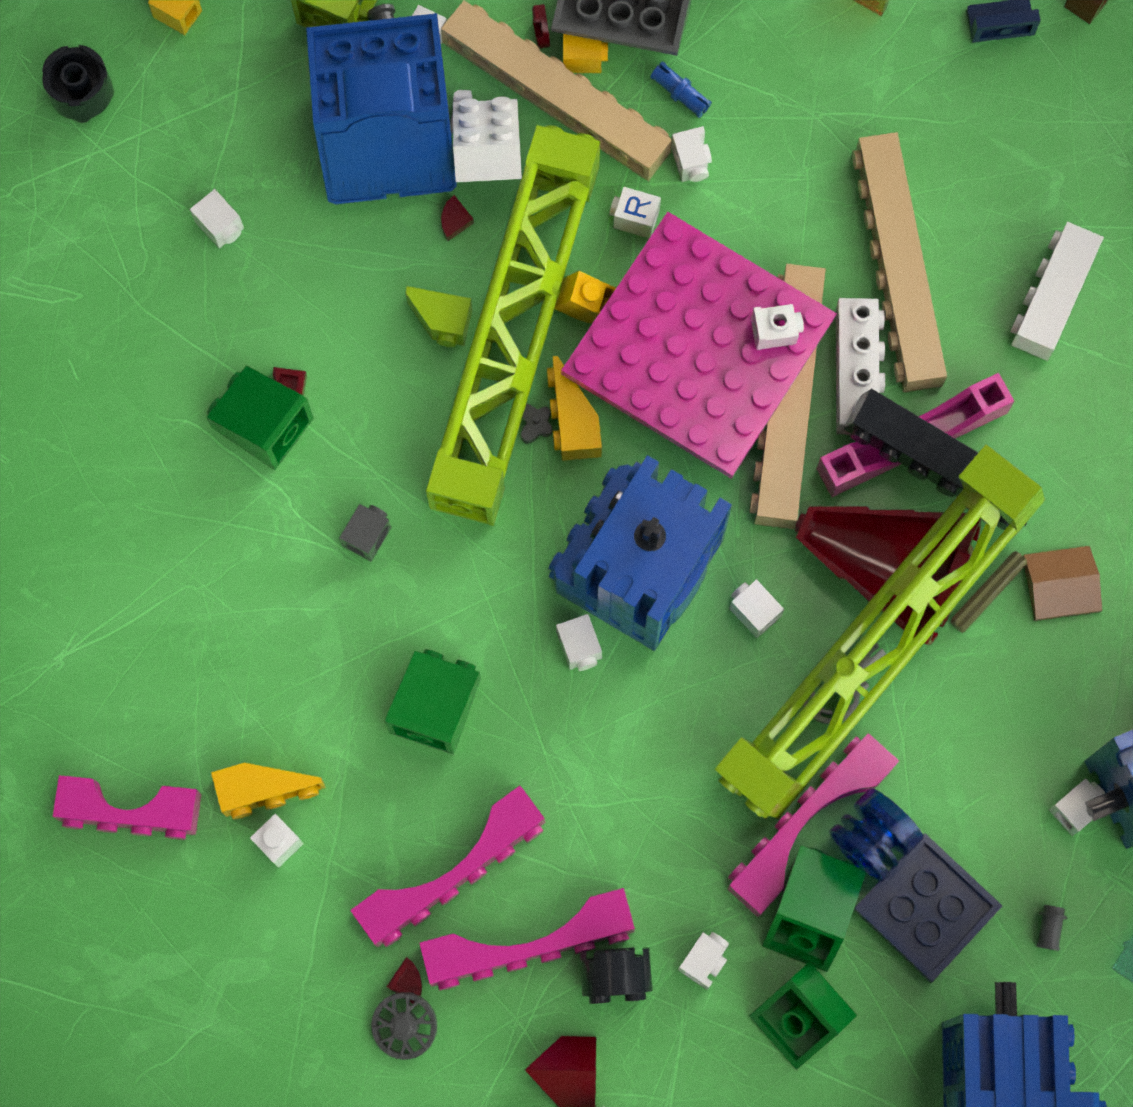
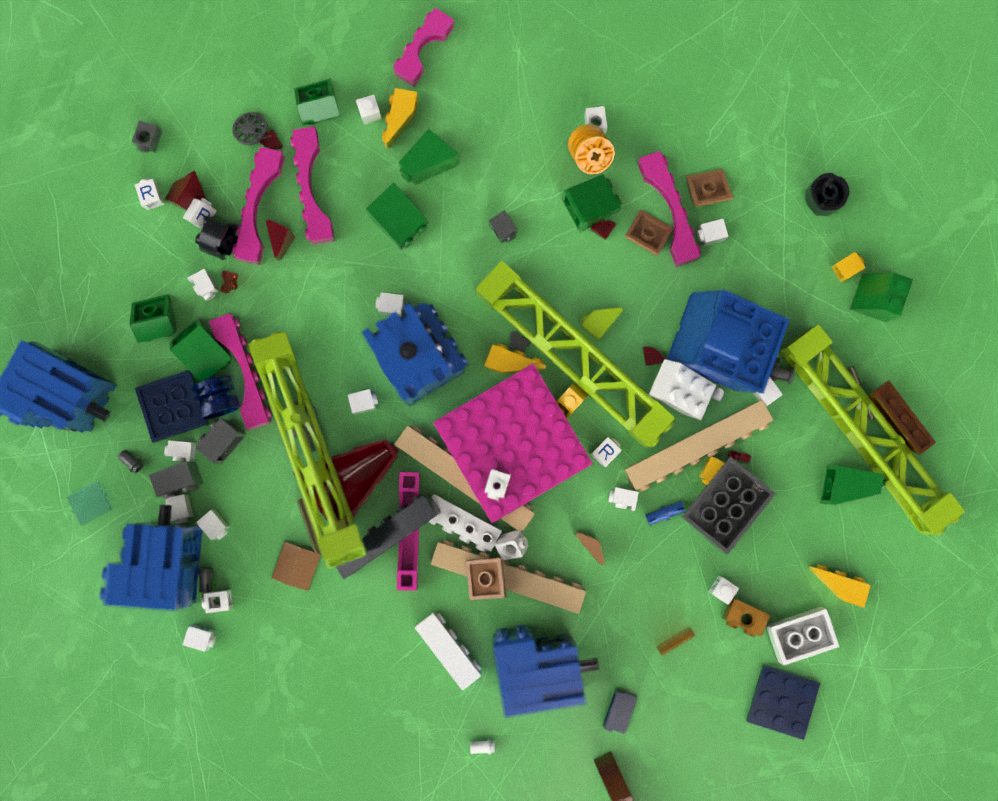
camera: 115 degrees right, 10 degrees up
(123, 488) = (596, 113): none -> white brick
(150, 257) = (708, 188): none -> medium nougat slope
(175, 451) = (584, 142): none -> light orange wheel
(258, 253) = (655, 172): none -> dark pink arch
(265, 312) = (648, 232): none -> medium nougat slope
(304, 935) = (316, 102): none -> slope
(313, 699) = (427, 159): none -> green slope
(564, 874) = (280, 238): none -> dark red slope
(590, 1027) = (198, 211): none -> white brick
(677, 921) = (230, 281): none -> clear red piece
(787, 160) = (592, 546): none -> medium nougat slope
(851, 272) = (511, 545): none -> white brick
(922, 280) = (486, 578): none -> medium nougat slope
(940, 791) = (220, 440): none -> dark grey brick
(989, 853) = (180, 450): none -> white brick
(1016, 137) = (538, 673): none -> blue piece
(1040, 828) = (176, 479): none -> dark grey brick
(1074, 738) = (213, 525): none -> white brick

